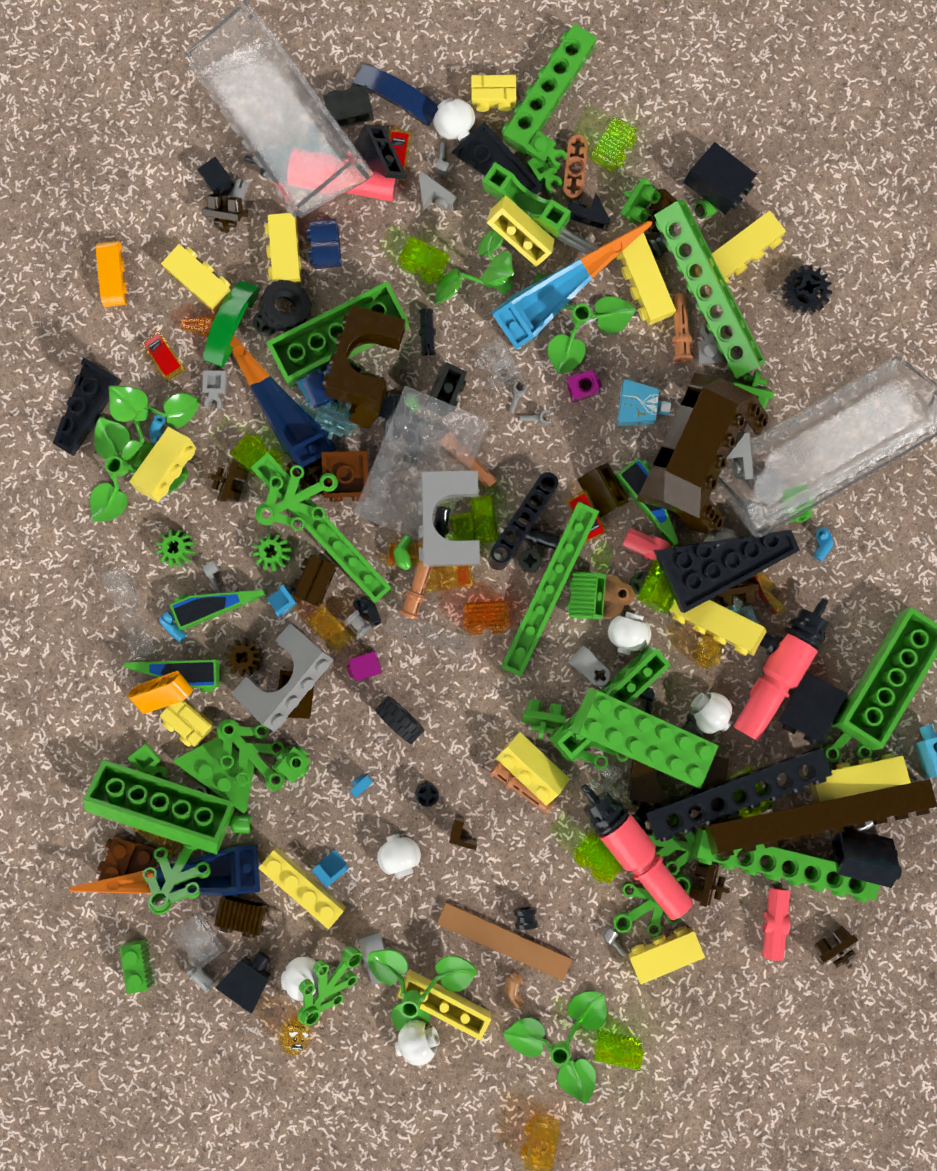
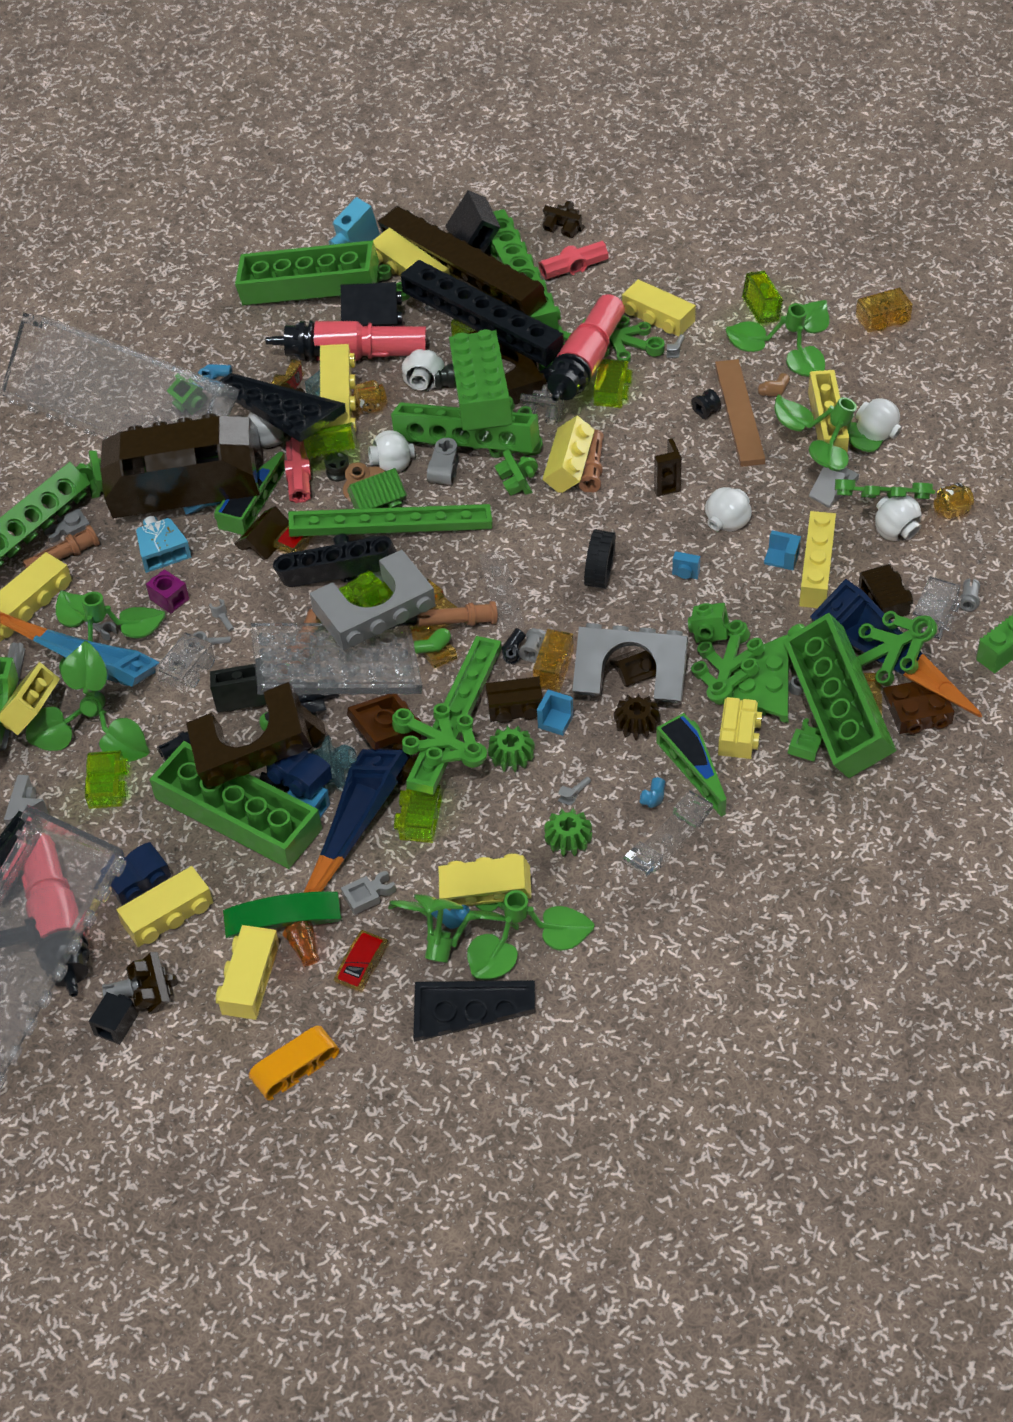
camera: 120 degrees left, 35 degrees down
(160, 692) = (722, 740): light orange beam -> none
(200, 608) = (610, 772): slope -> none
(232, 473) = (463, 823): dark brown hips -> none
(246, 981) = (939, 557): black torso -> none
(259, 324) = (258, 877): pearl dark grey wheel -> none
(286, 290) = (231, 880): black tyre -> none
(364, 666) = (568, 616): magenta brick -> none
(429, 797) = (654, 519): black wheel -> none
(486, 616) = (451, 555): clear orange brick -> none
(705, 893) = (573, 307): dark brown hips -> none

